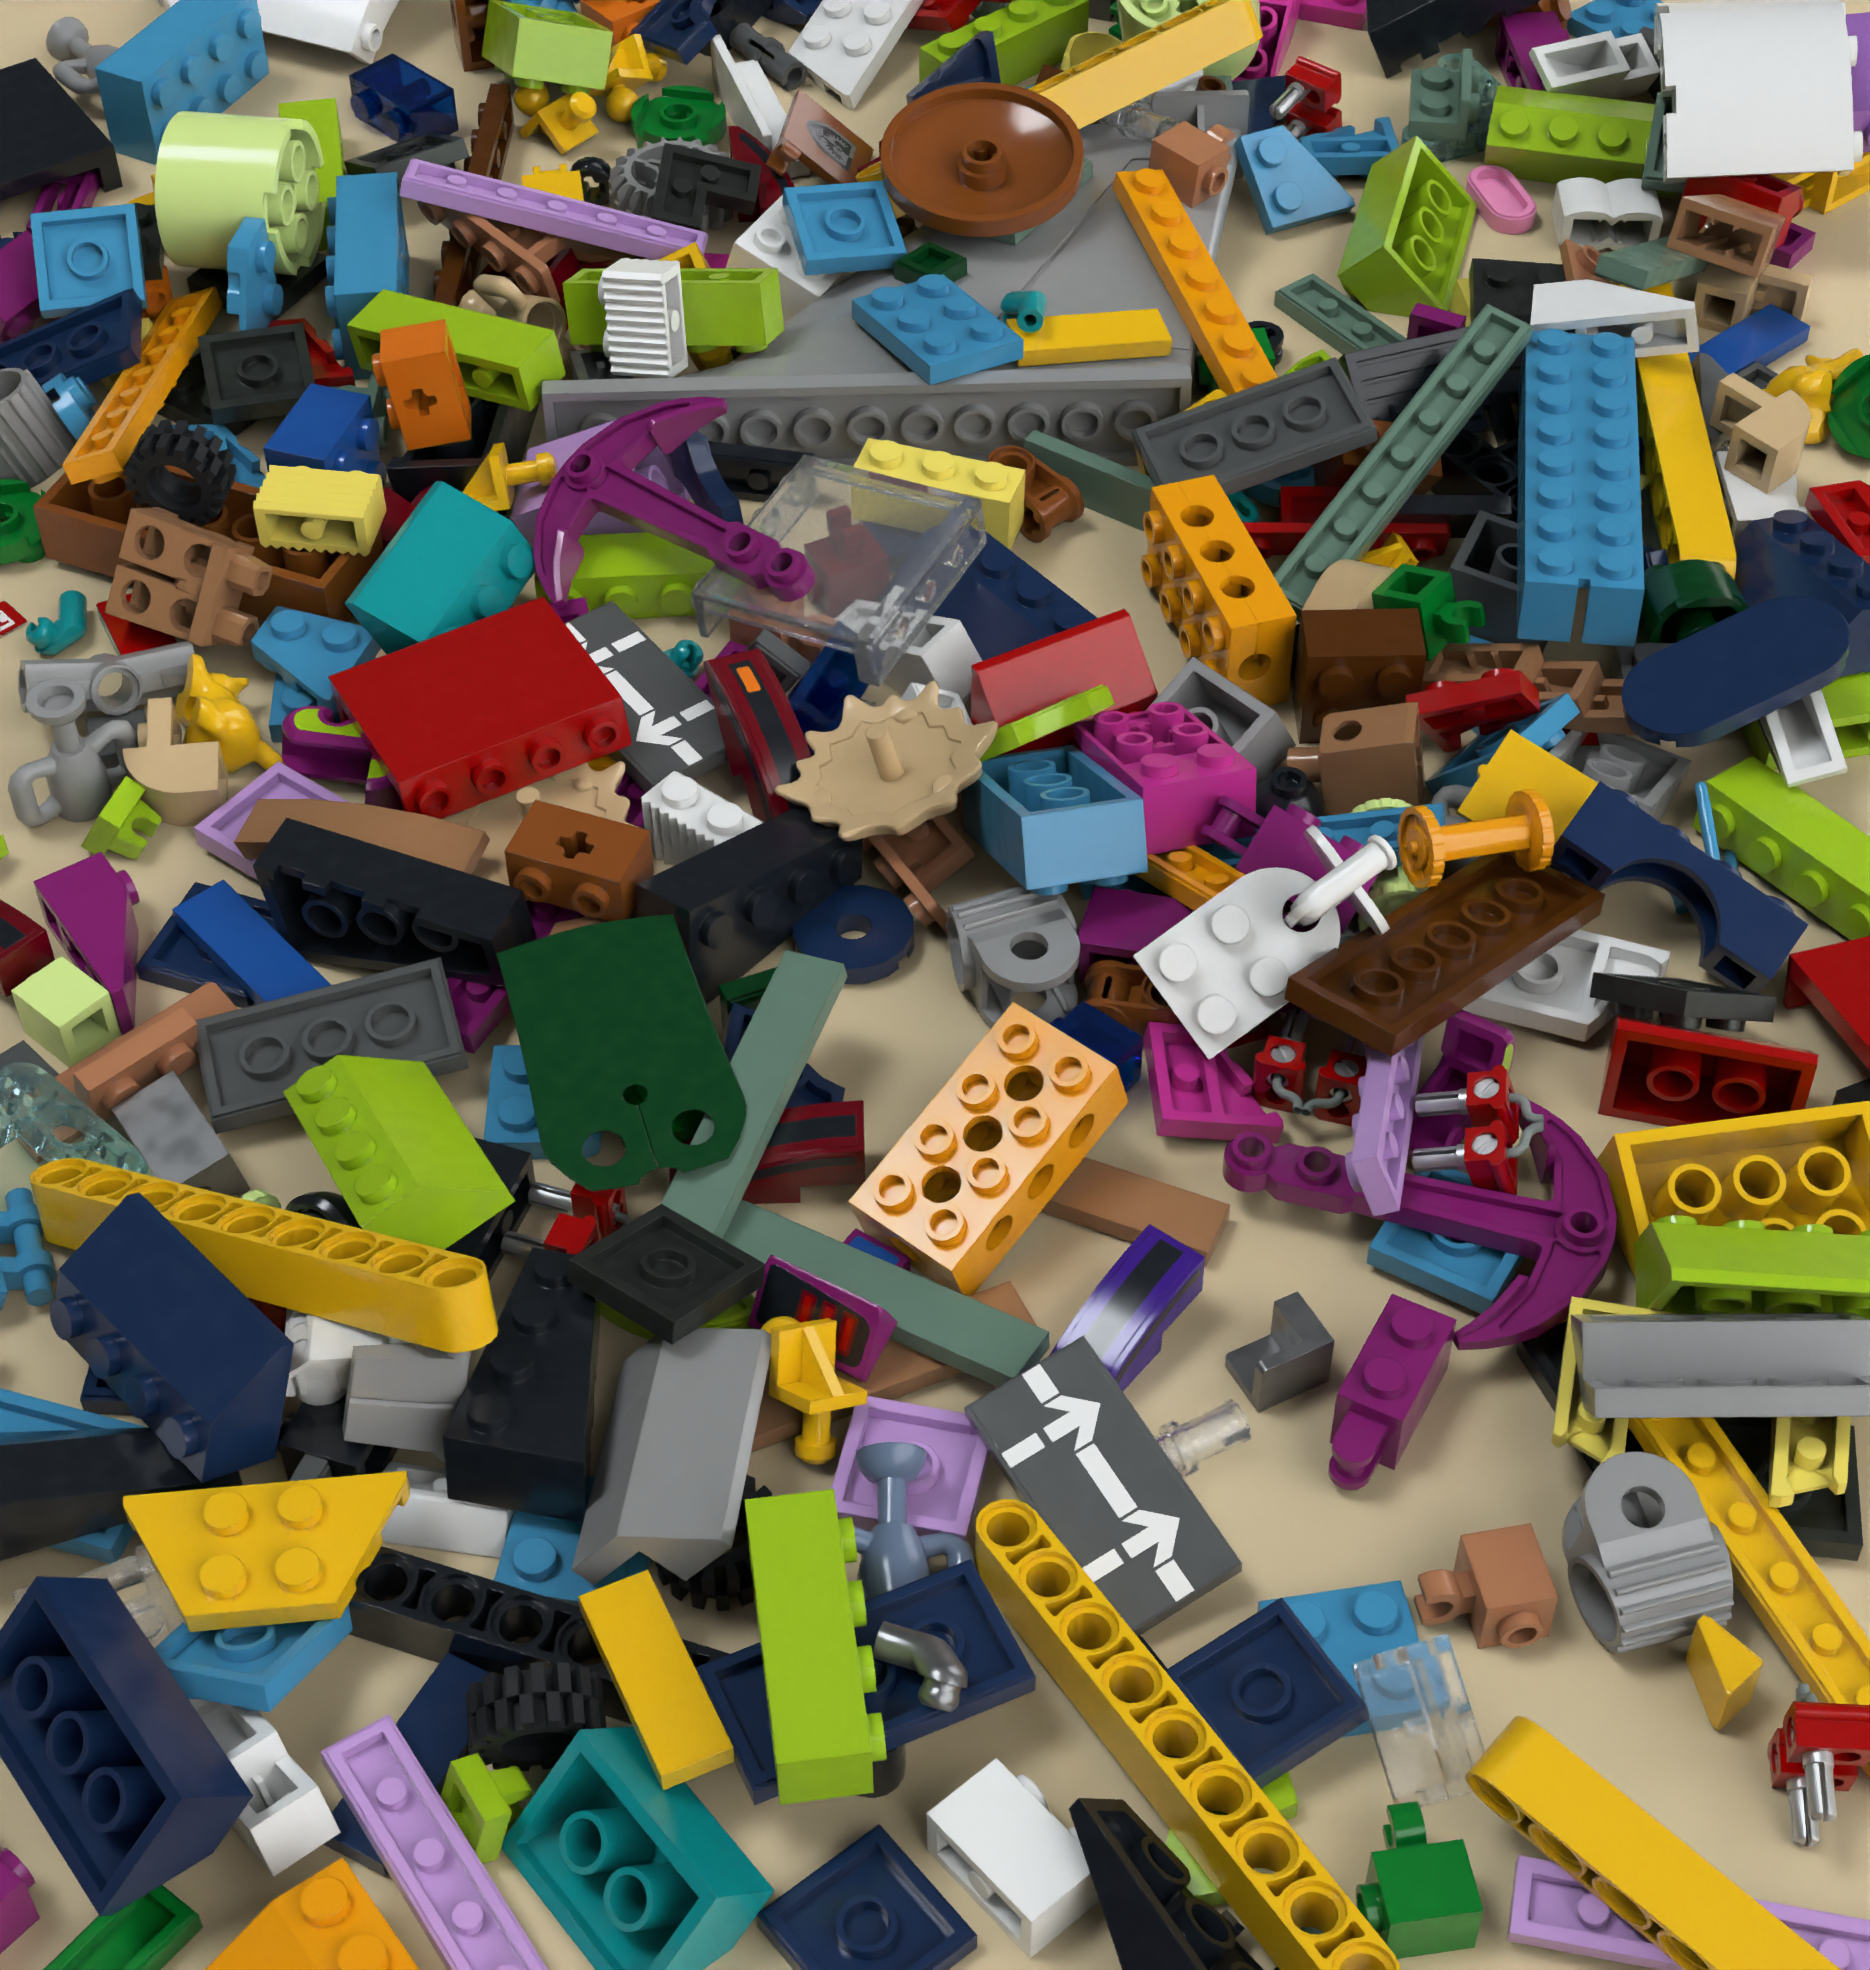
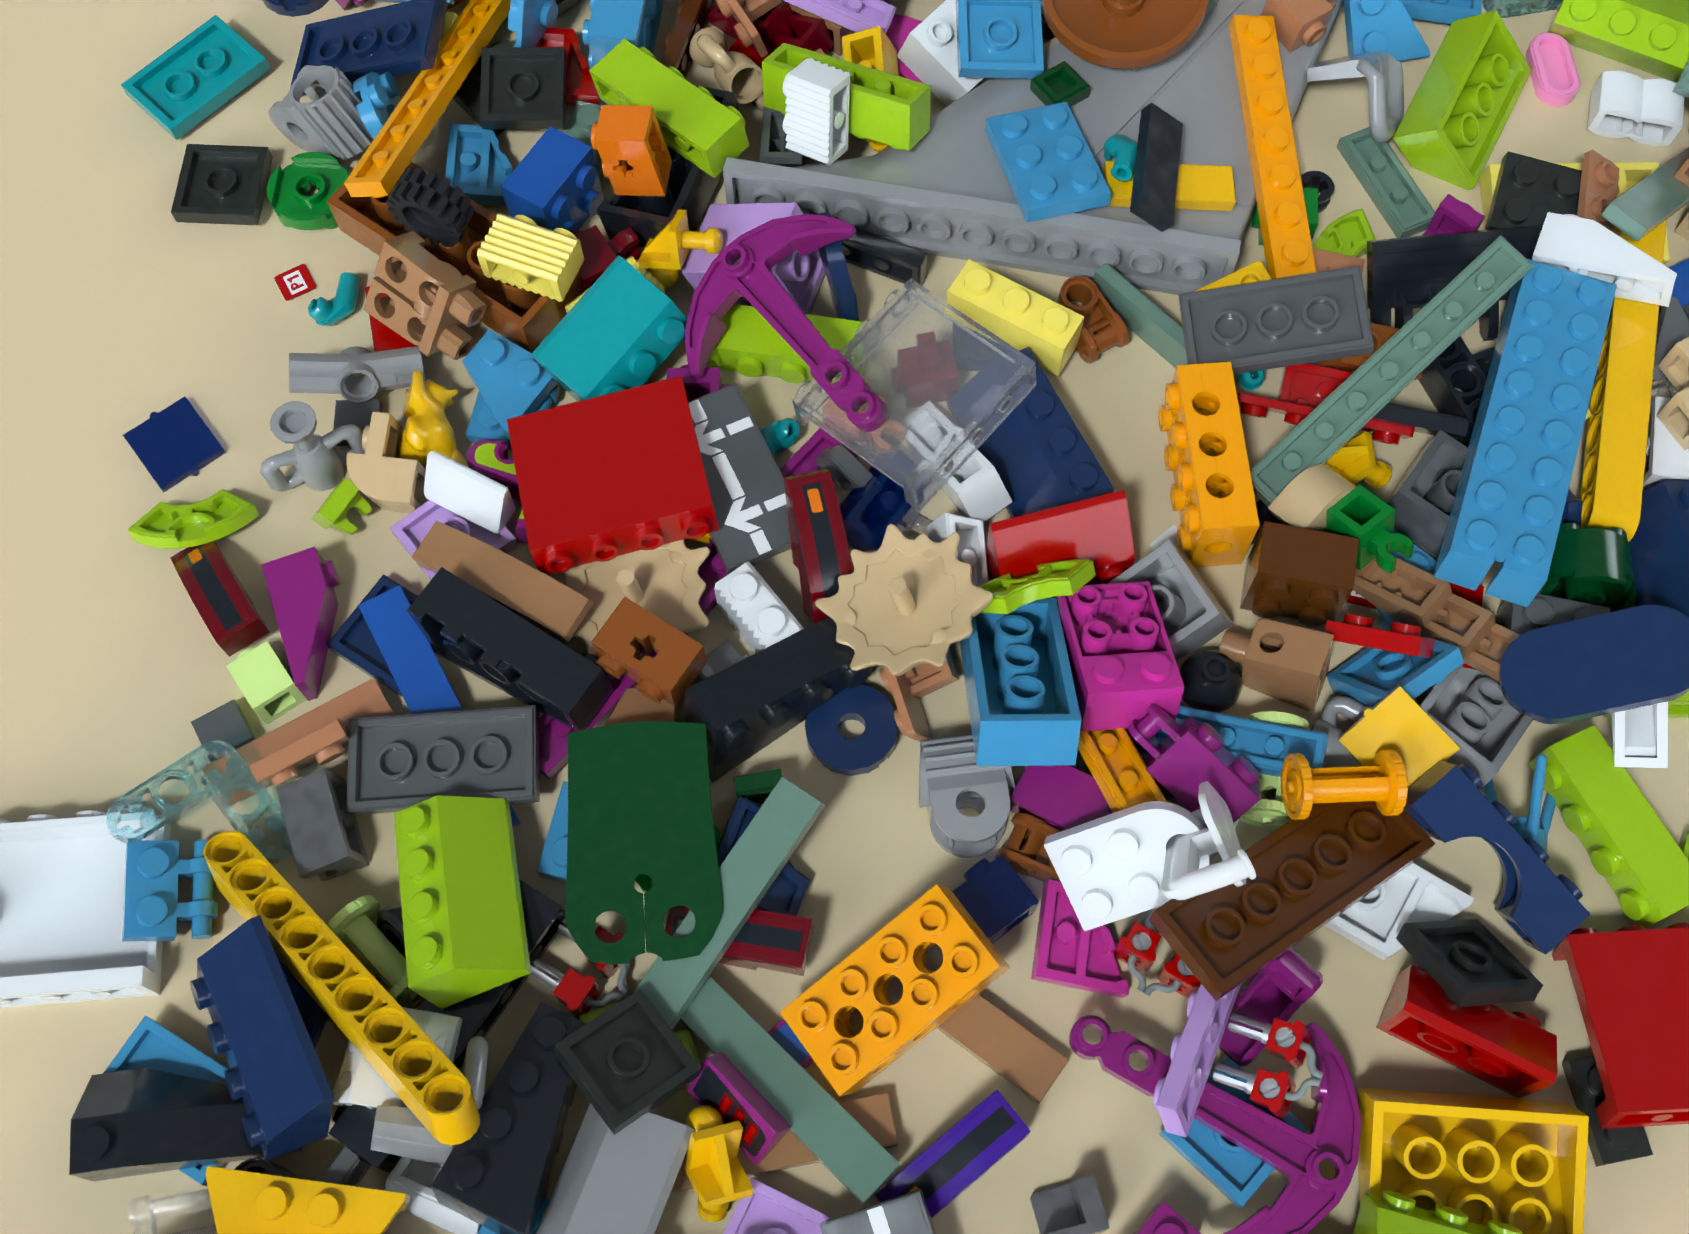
camera: 15 degrees right, 20 degrees up
(291, 763) = (467, 493): none -> white slope
(1070, 310) = (1156, 167): none -> black tile
(1310, 219) = (1384, 86): none -> light grey piece

